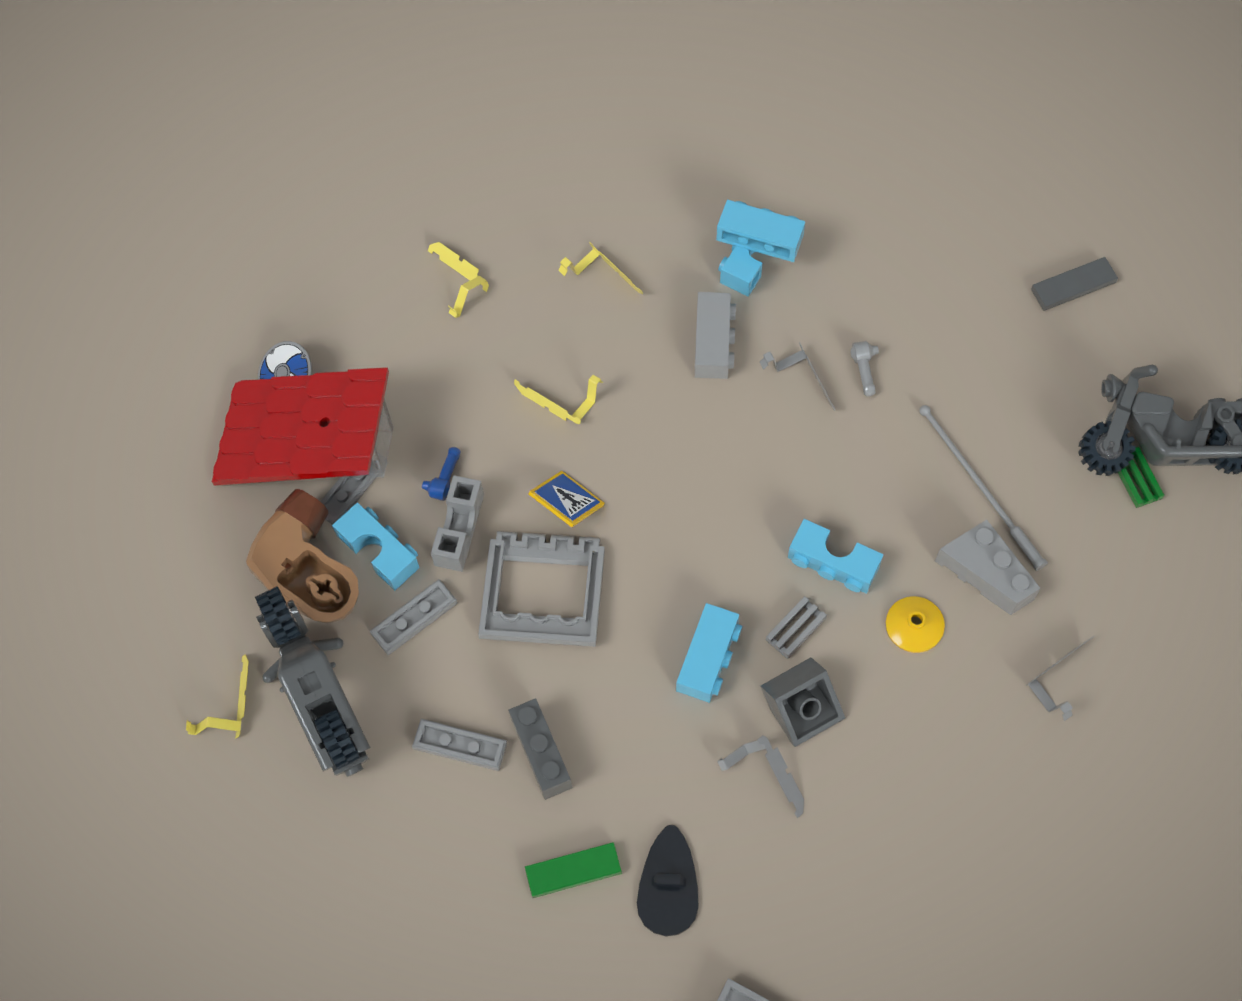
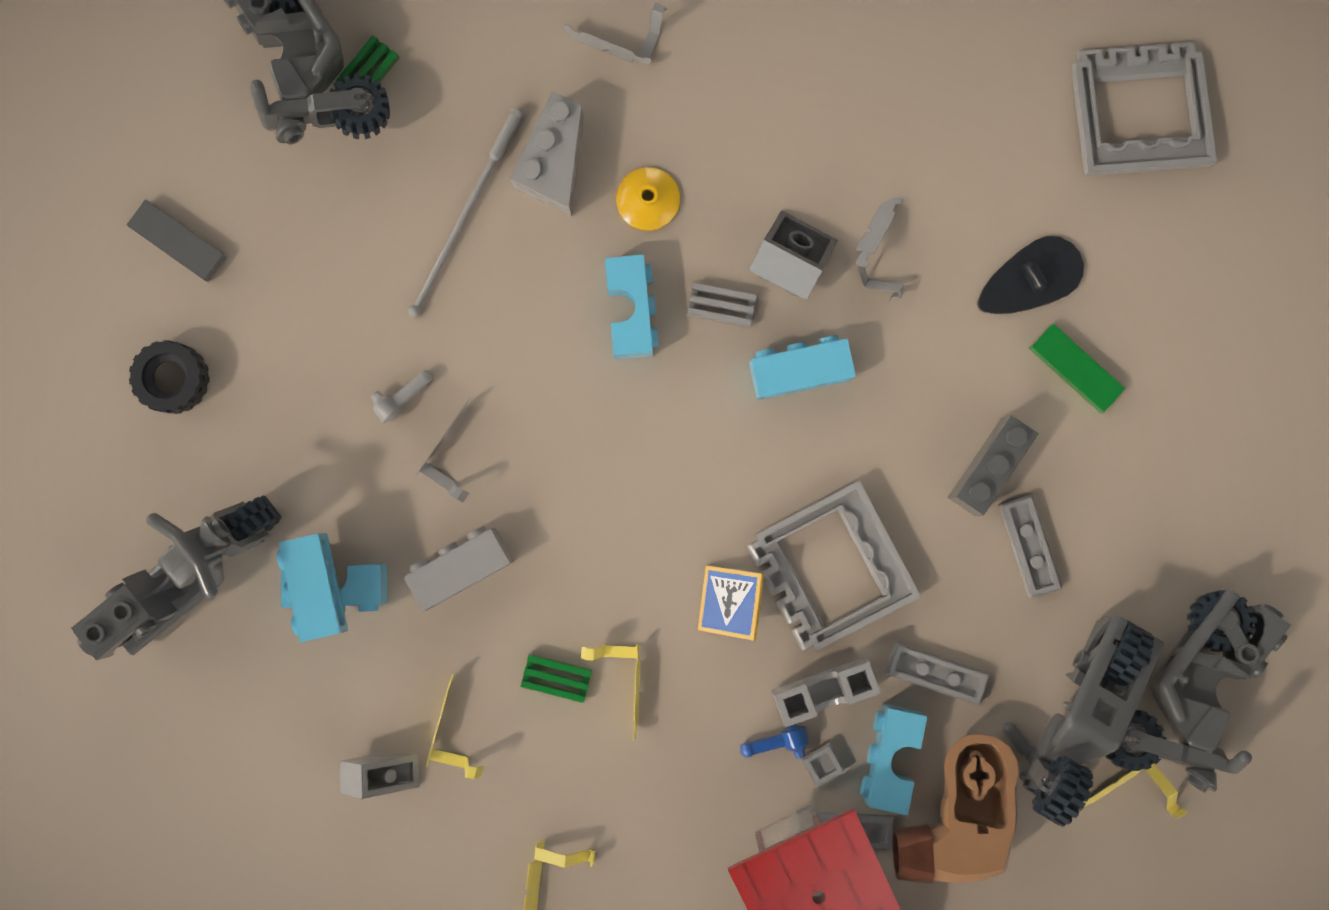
camera: 125 degrees left, 20 degrees up
(274, 782) = (1188, 684): none -> dark grey piece
(406, 498) = (822, 764): none -> light grey tile
(586, 350) = (529, 671): none -> green tile
(604, 212) = (378, 774): none -> light grey slope
(822, 159) = (182, 578): none -> dark grey piece
(977, 209) = (150, 359): none -> black tyre

